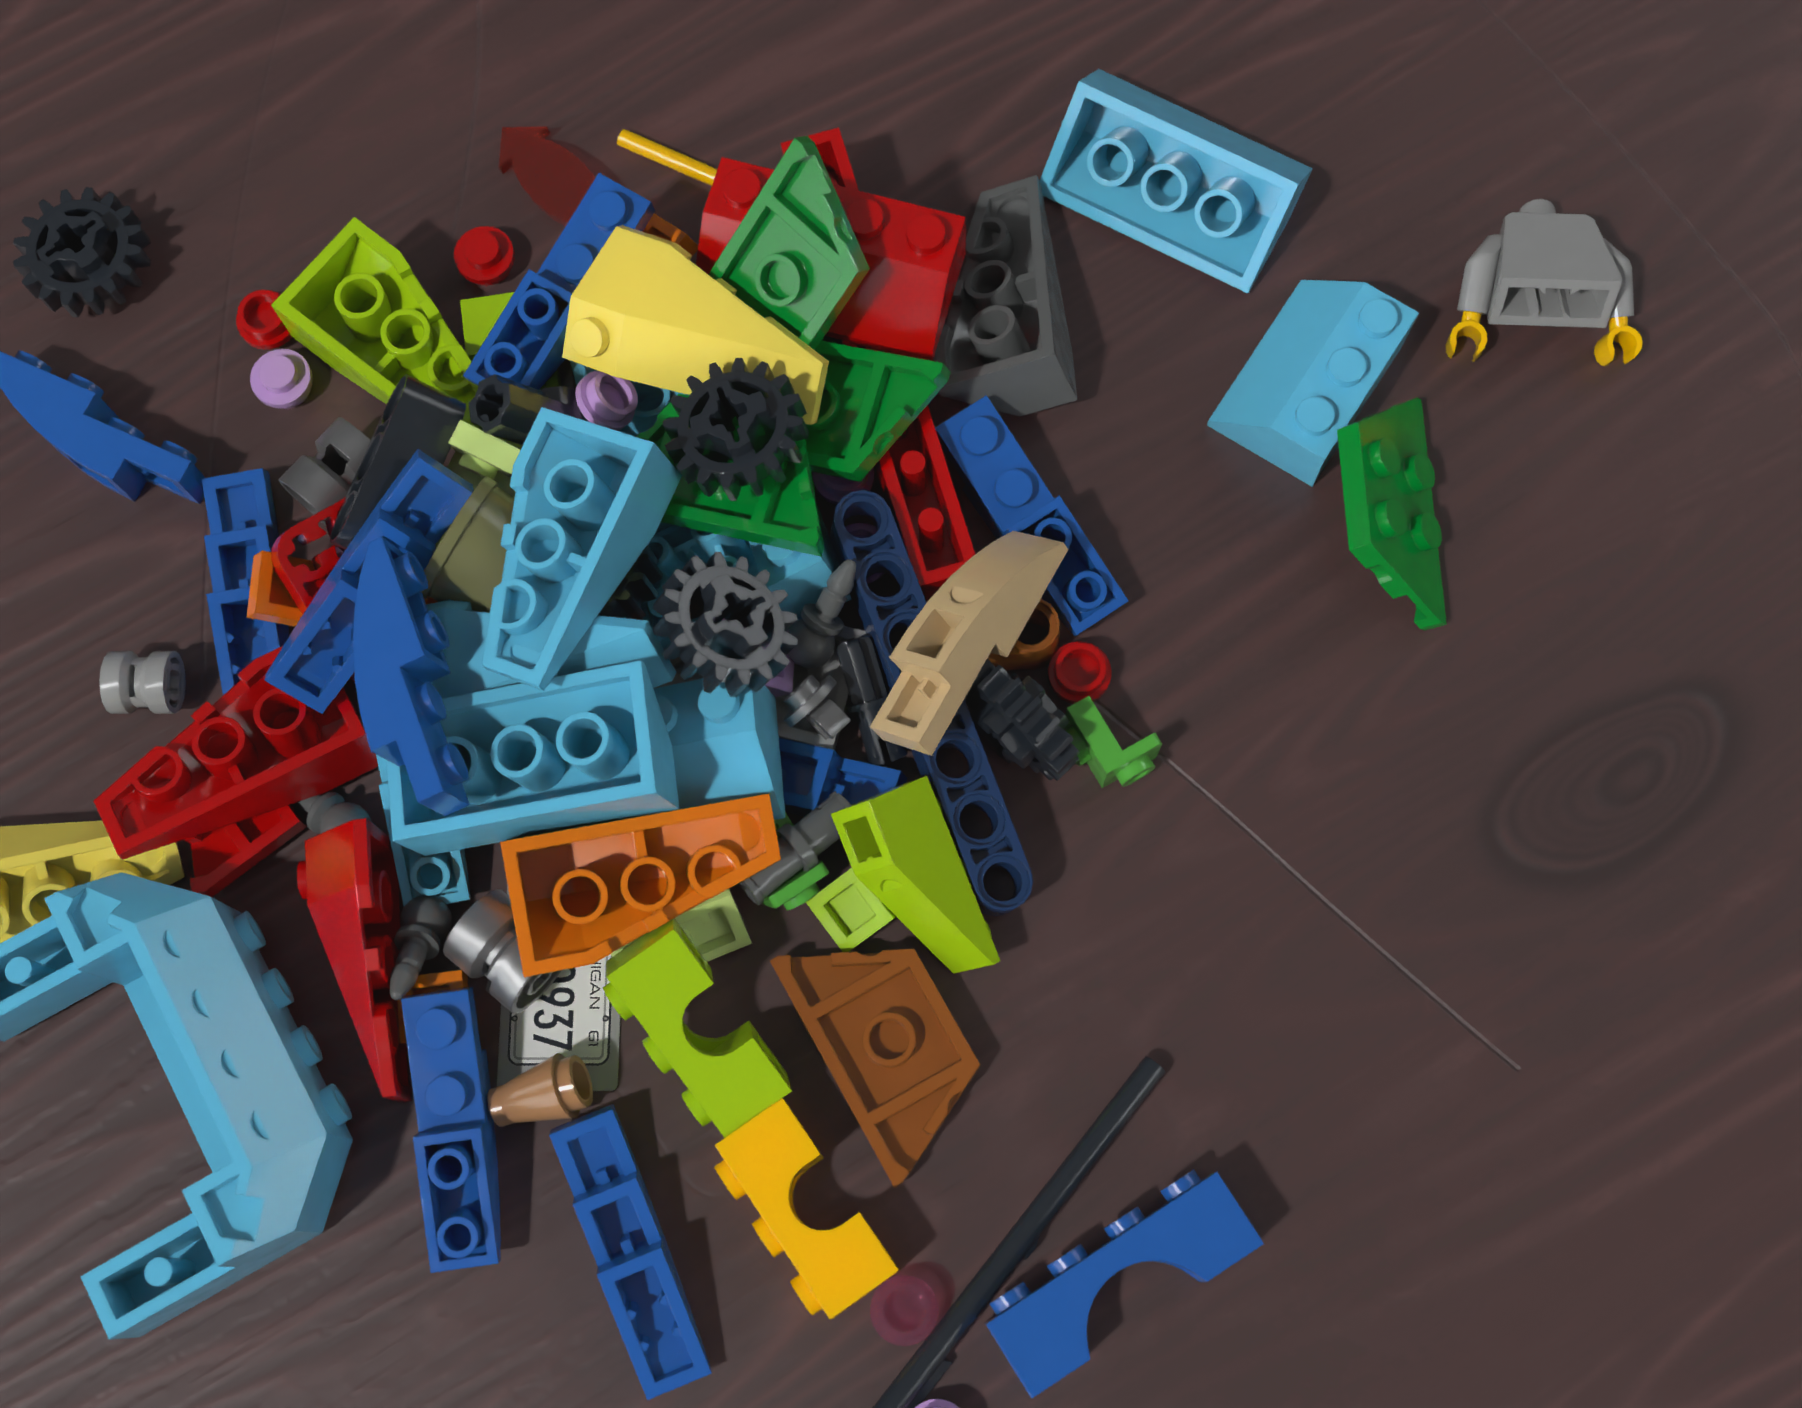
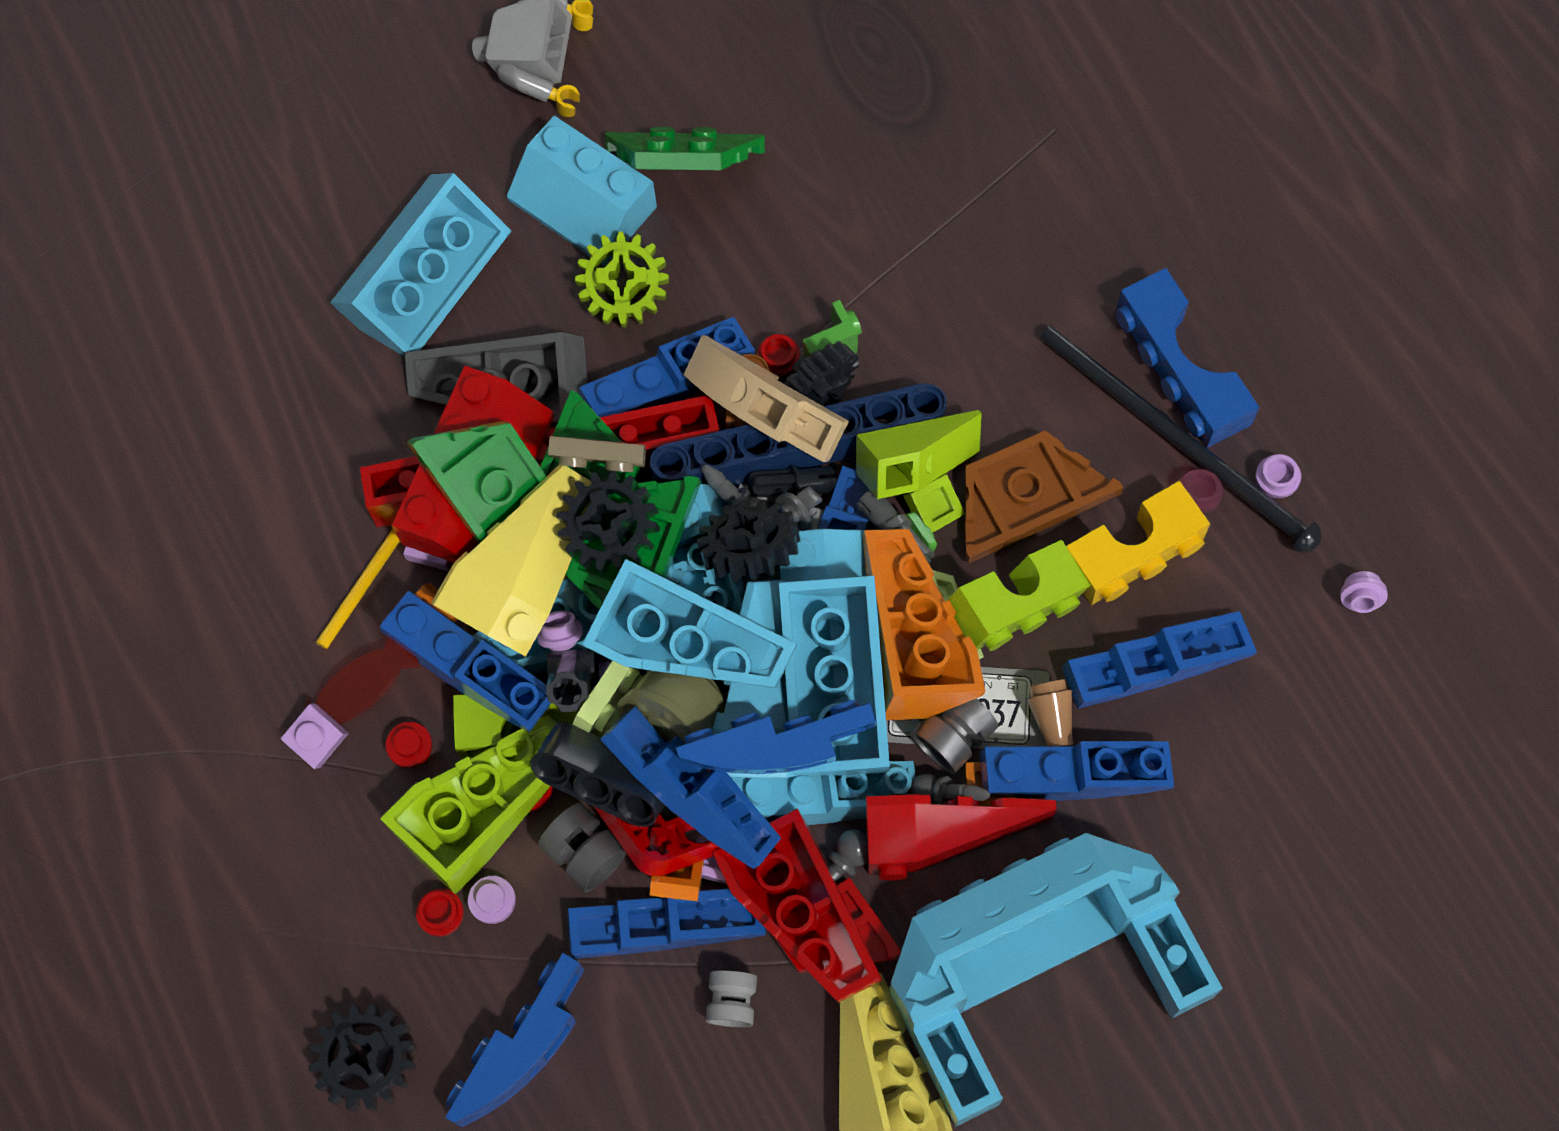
camera: 85 degrees left, 5 degrees down
(492, 142) = (314, 736): none -> lavender plate
(833, 398) = (579, 451): none -> dark tan plate
(1197, 439) = (605, 279): none -> lime gear

